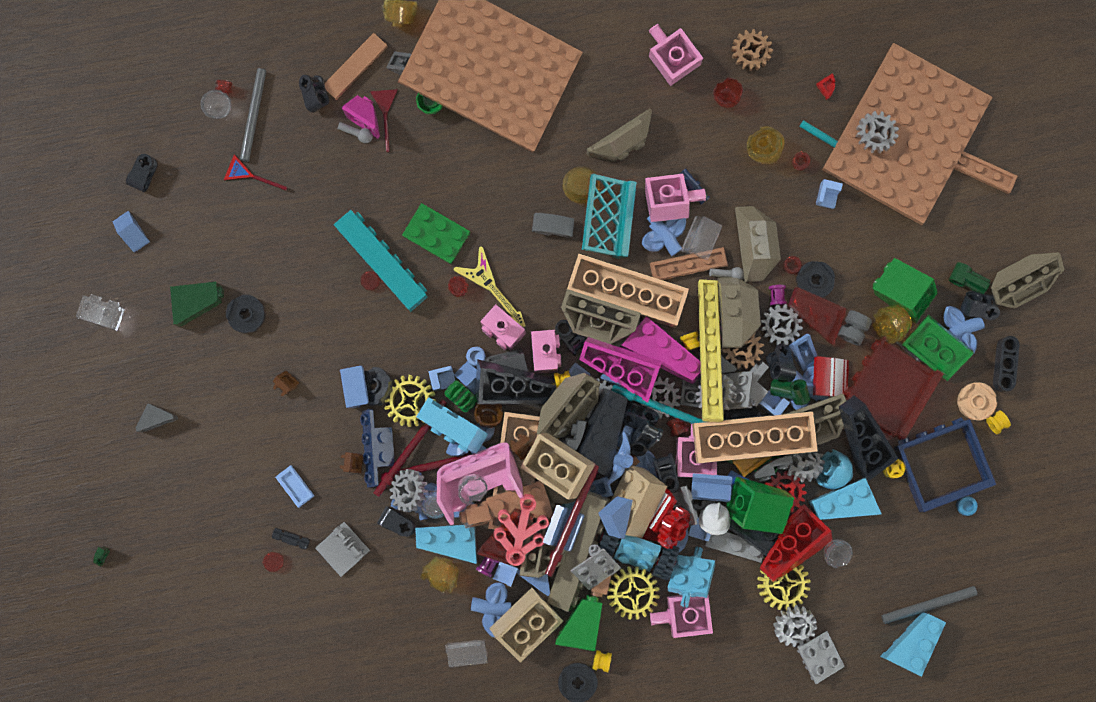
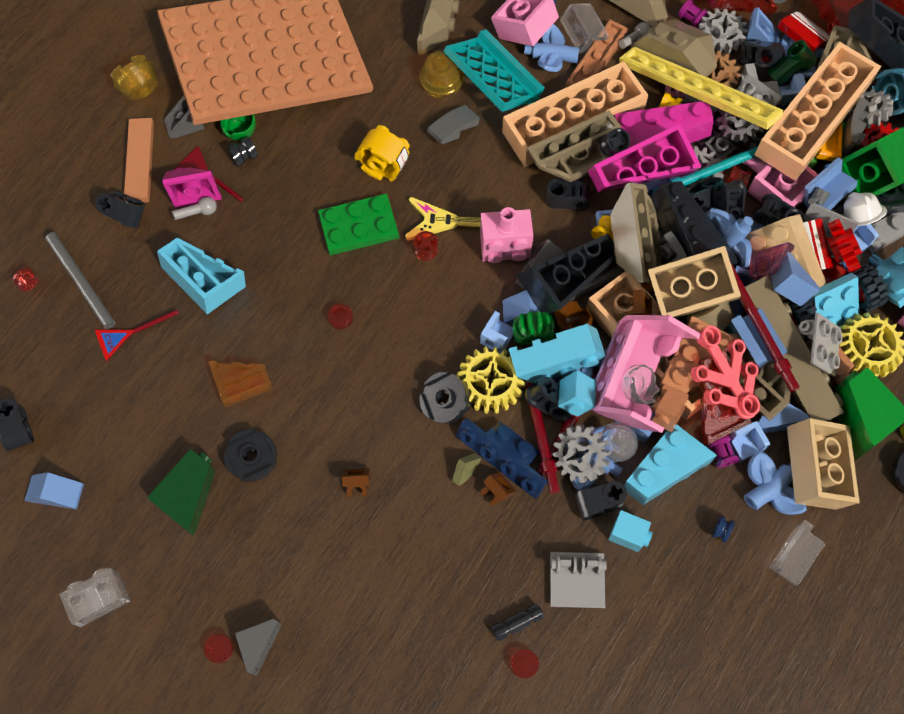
camera: 45 degrees left, 15 degrees down
(135, 400) = (218, 649): none -> clear red tile
(216, 104) = (33, 298): clear hair -> none
(279, 265) = (240, 381): none -> clear orange wing
(294, 486) = (467, 568): light blue tile -> none
(316, 183) = (199, 275): none -> medium azure wedge
(347, 434) = (465, 468): none -> olive tile
(354, 386) = (428, 413): medium blue panel -> none
(380, 260) = (332, 287): teal brick -> none
(393, 554) = (631, 531): none -> medium azure brick
(415, 121) = (241, 151): none -> black wheel
(427, 444) = (546, 399): none -> black piece
(439, 457) = (577, 393): none -> medium azure brick
(441, 574) = (696, 501): clear yellow cone -> none
(442, 601) = (723, 529): none -> dark blue bush
(475, 353) = (505, 288): light blue tile -> none
(488, 206) = (382, 153): none -> yellow brick
(544, 351) = (564, 219): bright pink brick -> none
(615, 493) = (768, 260): none -> clear pink tile
(617, 341) = (619, 139): none -> black wheel
(695, 487) = (819, 196): none -> dark grey hand

